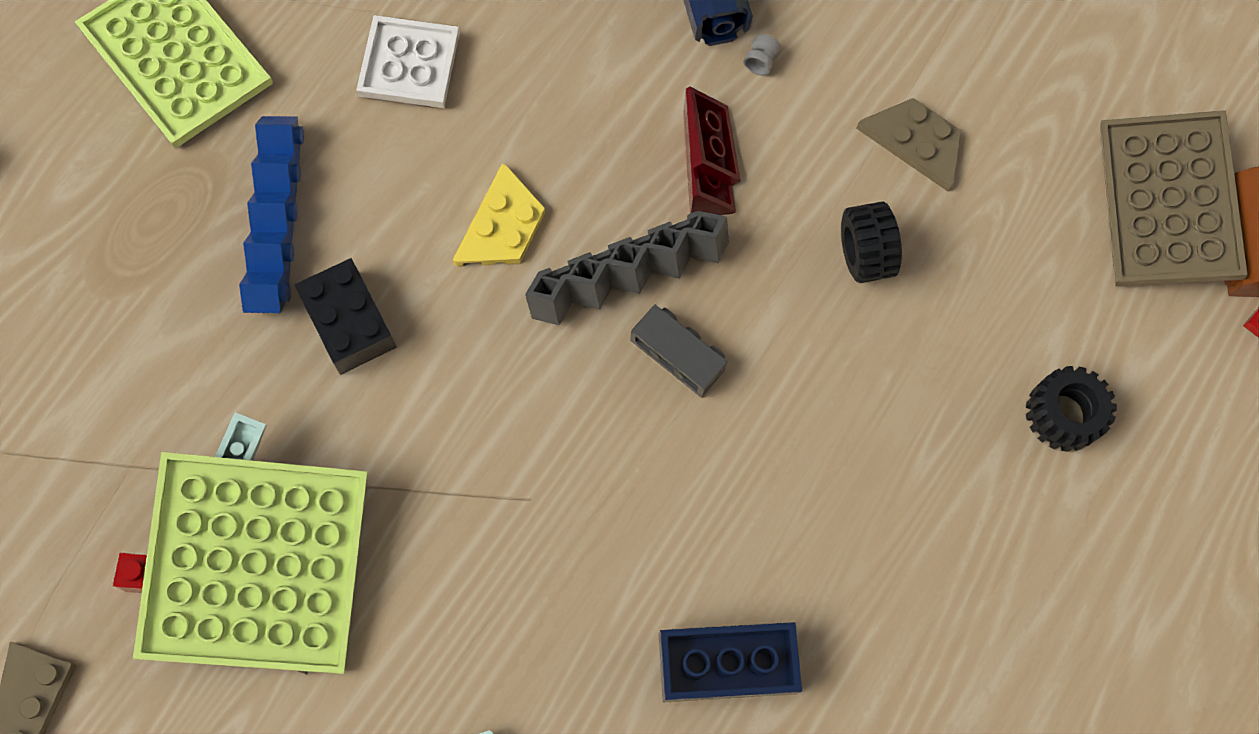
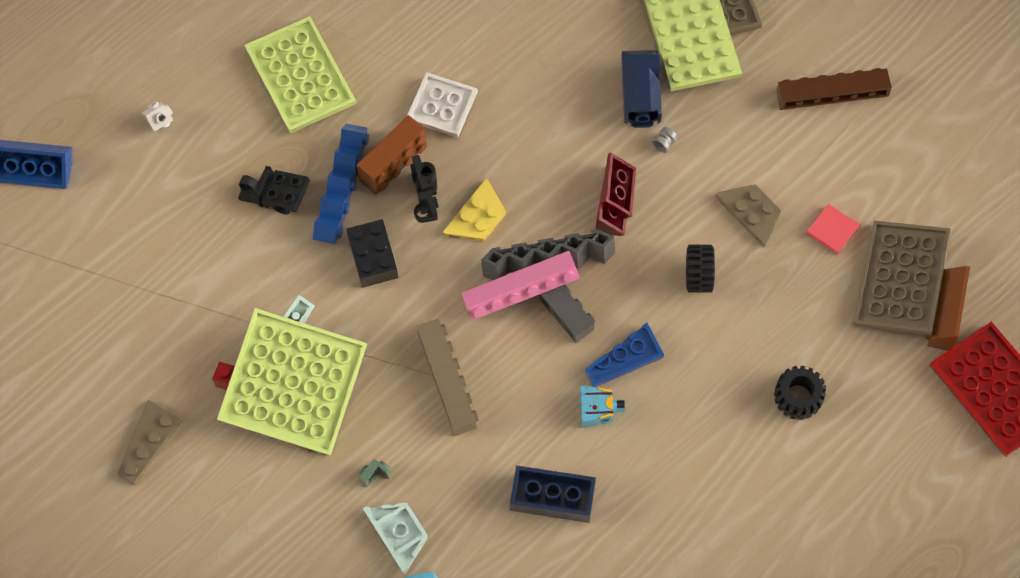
camera: 20 degrees right, 5 degrees down
(165, 243) = (275, 189): none -> black plate
(345, 152) = (392, 155): none -> dark orange brick
(407, 181) = (426, 183): none -> black plate
(416, 689) = (369, 472): none -> sand green bracket
(510, 498) = (446, 377): none -> dark tan brick
(597, 323) = (520, 285): none -> bright pink brick
(764, 495) = (598, 406): none -> medium azure torso
(792, 401) = (633, 353): none -> blue wing
(1043, 144) = (833, 229): none -> coral tile

